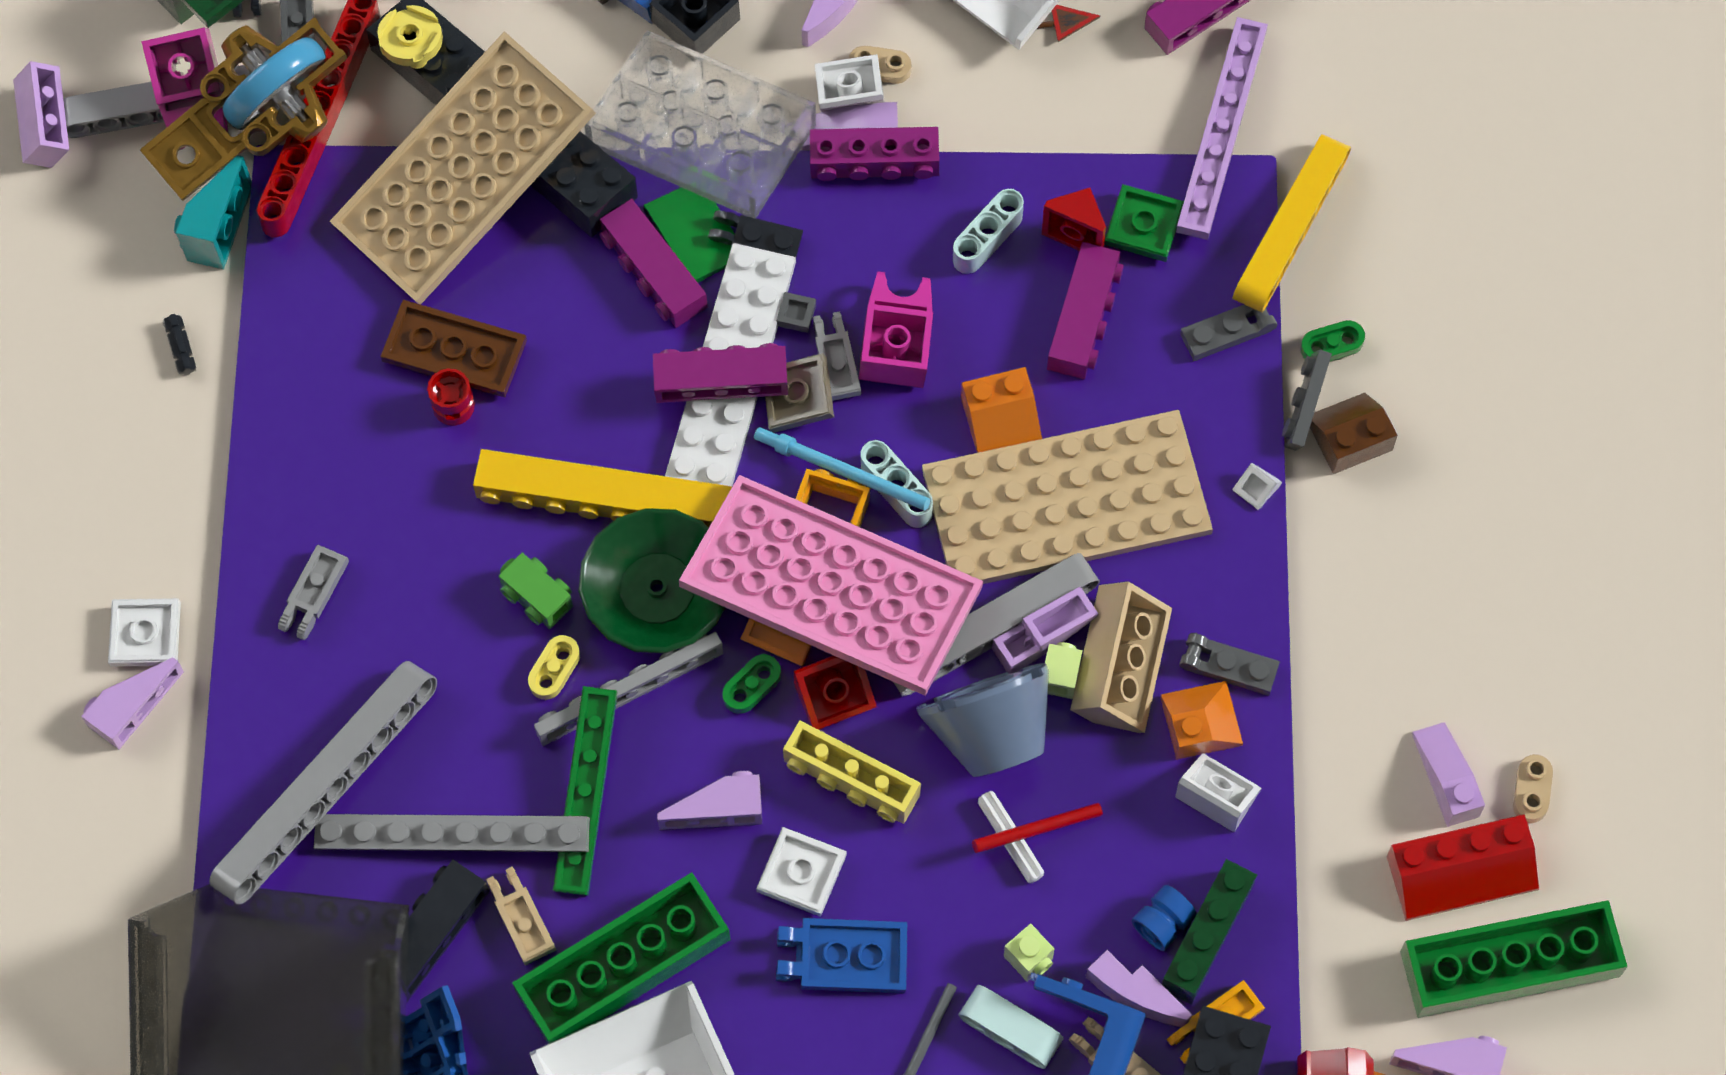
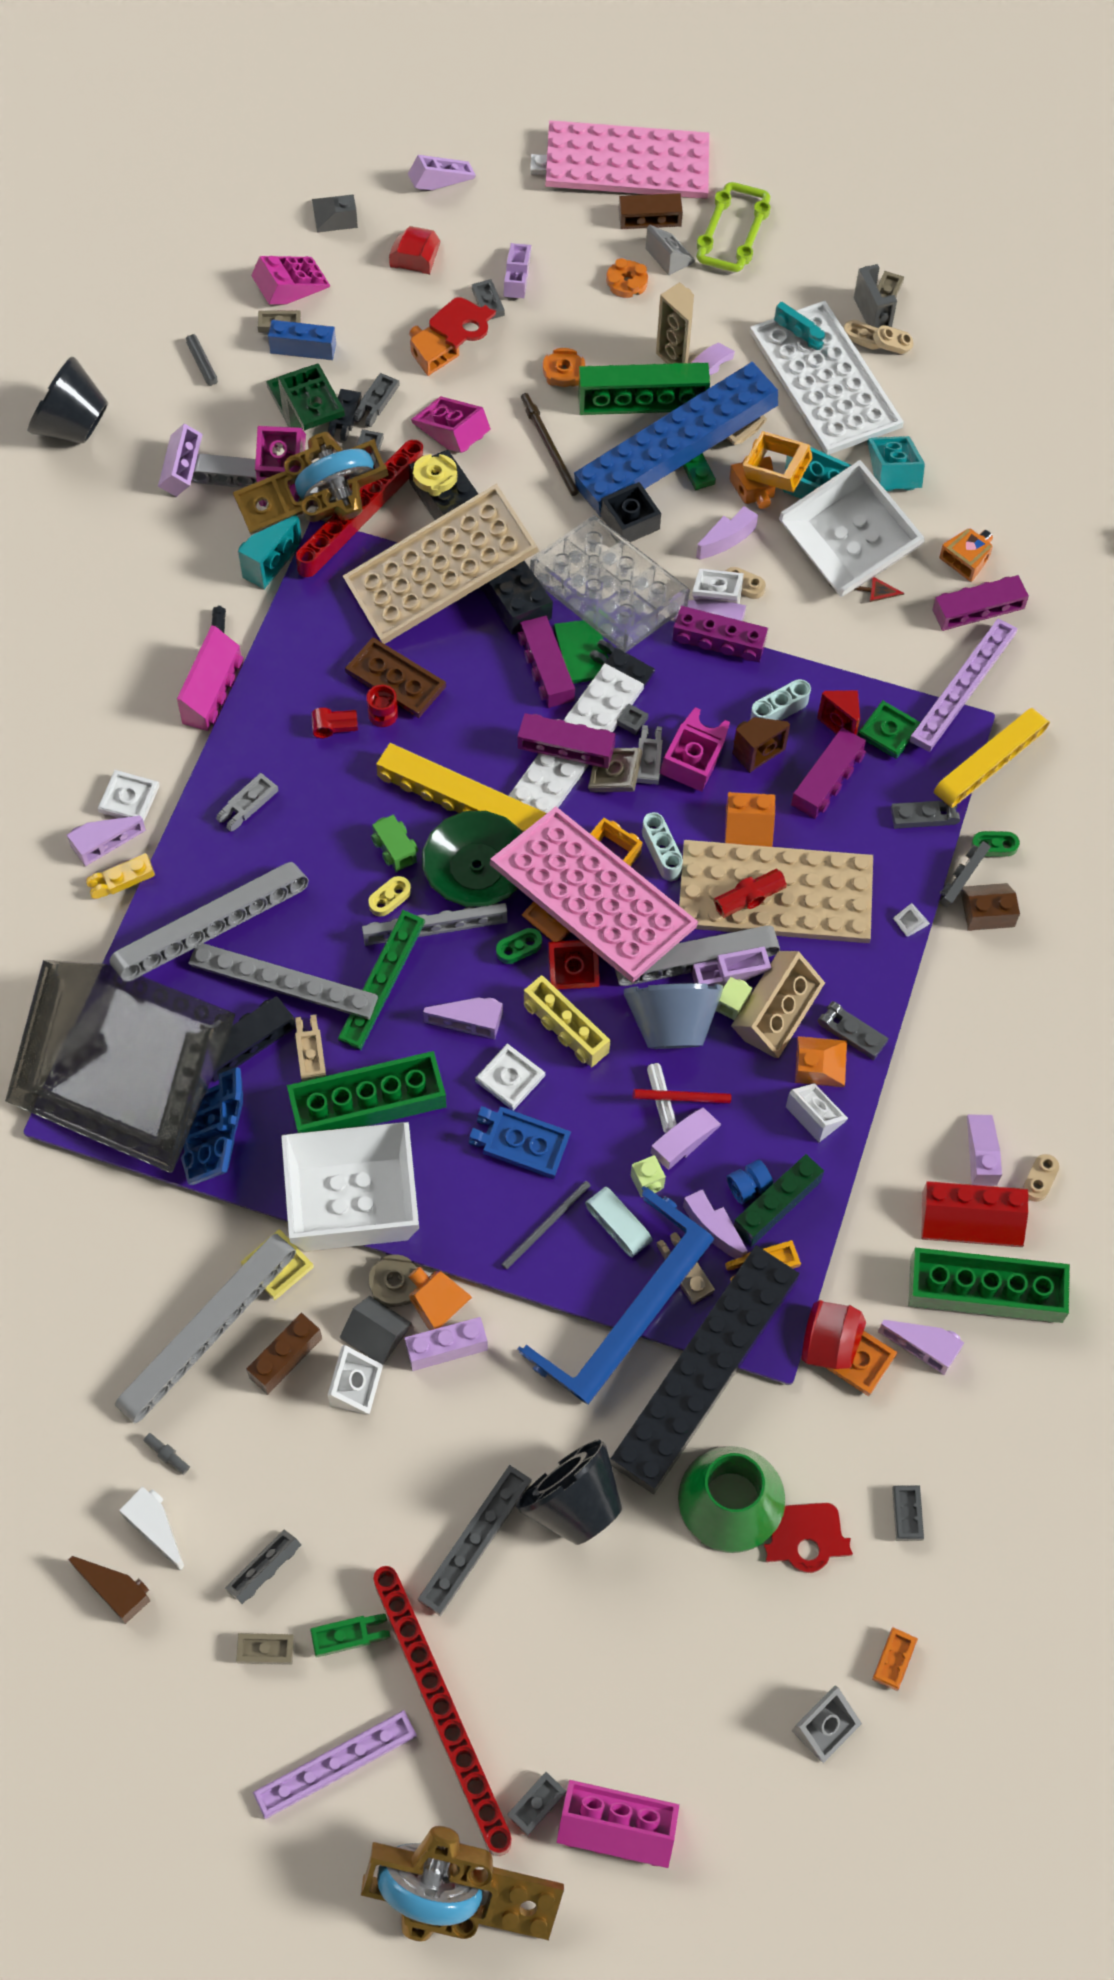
camera: 15 degrees right, 5 degrees down
(176, 751) = (120, 877): none -> yellow hinge
(198, 430) = (209, 680): none -> dark pink slope
(383, 442) = (328, 722): none -> red piece
(788, 446) = (598, 802): medium azure bar -> none
(978, 295) = (759, 741): none -> reddish brown slope
(1036, 516) = (750, 893): none -> red piece
(1059, 883) = (684, 1138): none -> lavender slope

